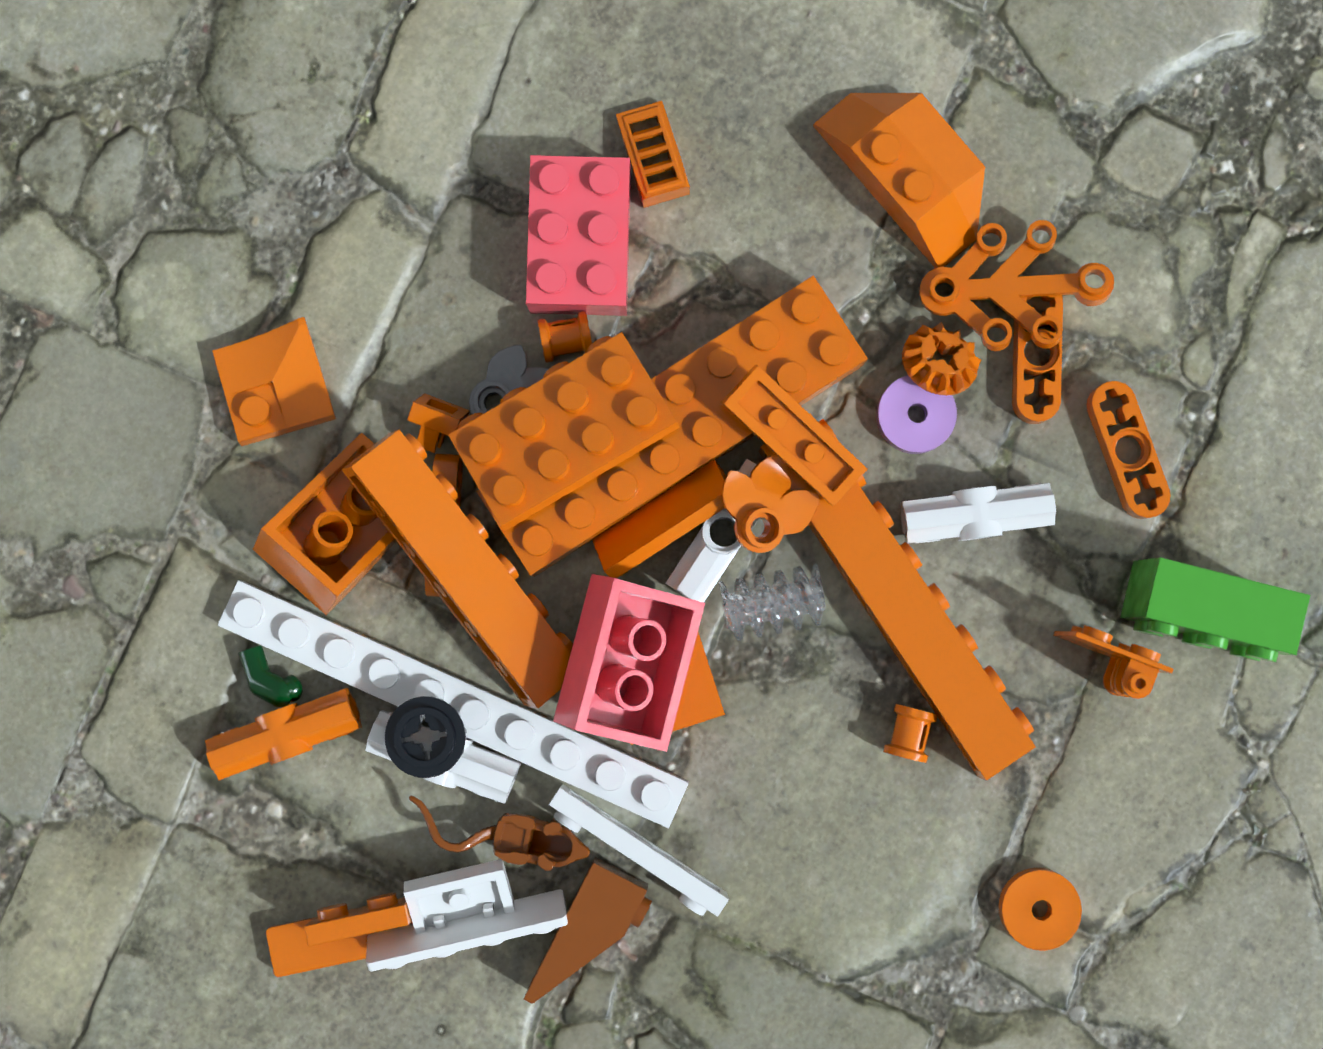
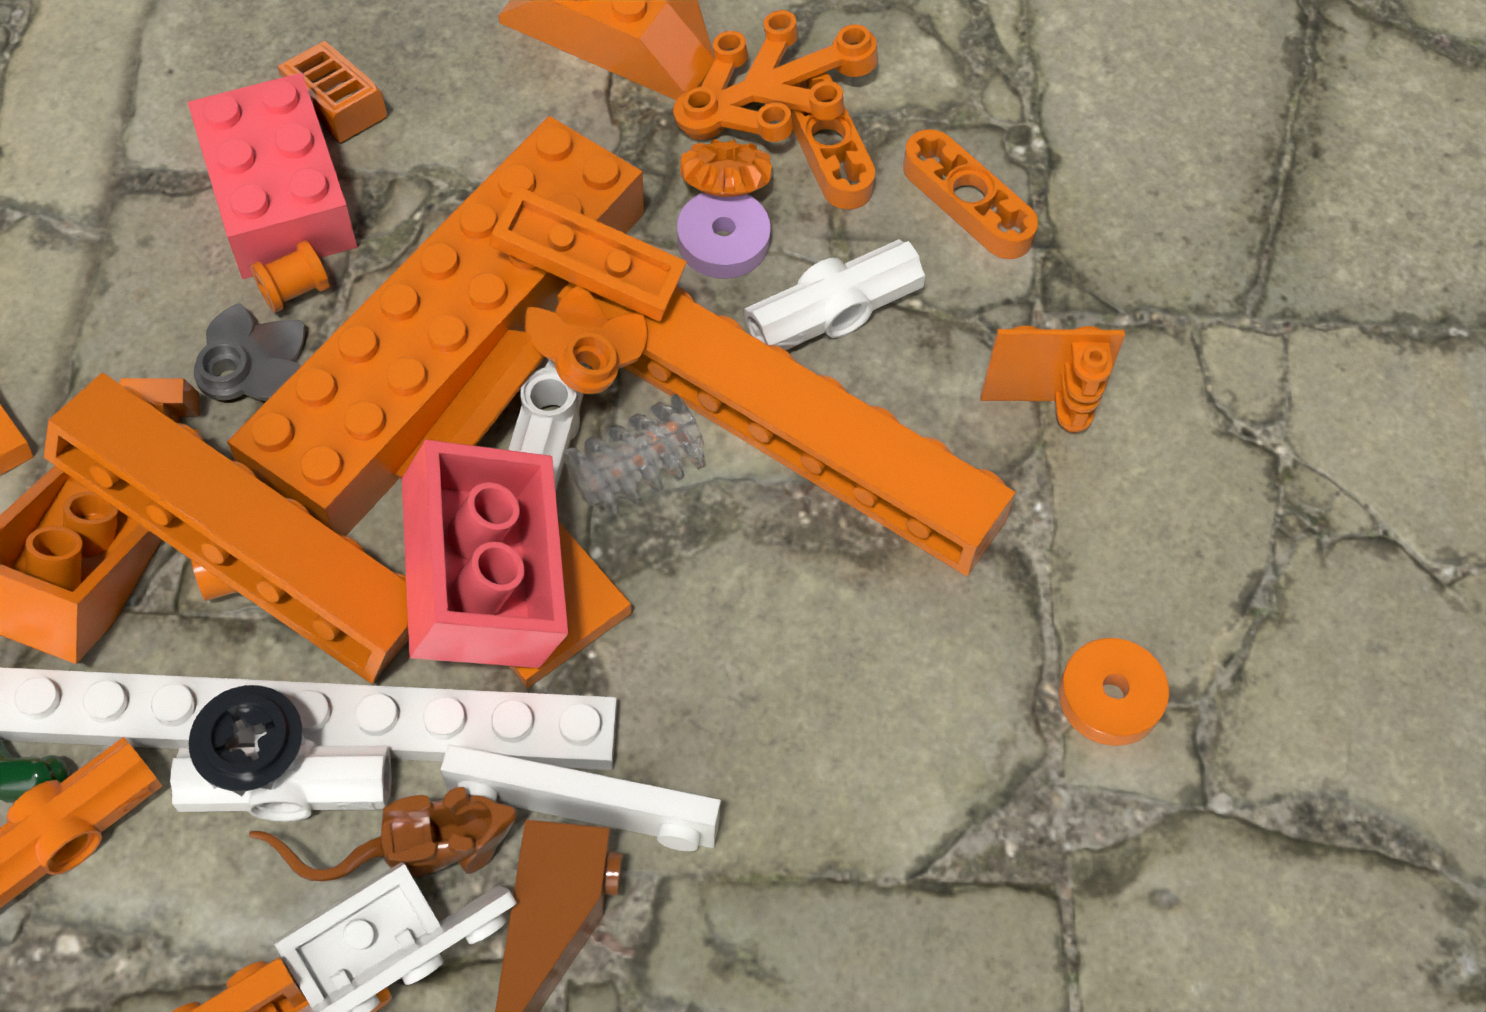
camera: 25 degrees left, 25 degrees down
(562, 430) = (310, 339): orange bracket -> none
(910, 733) = (864, 545): orange bush -> none
(1214, 609) = (1148, 277): bright green brick -> none

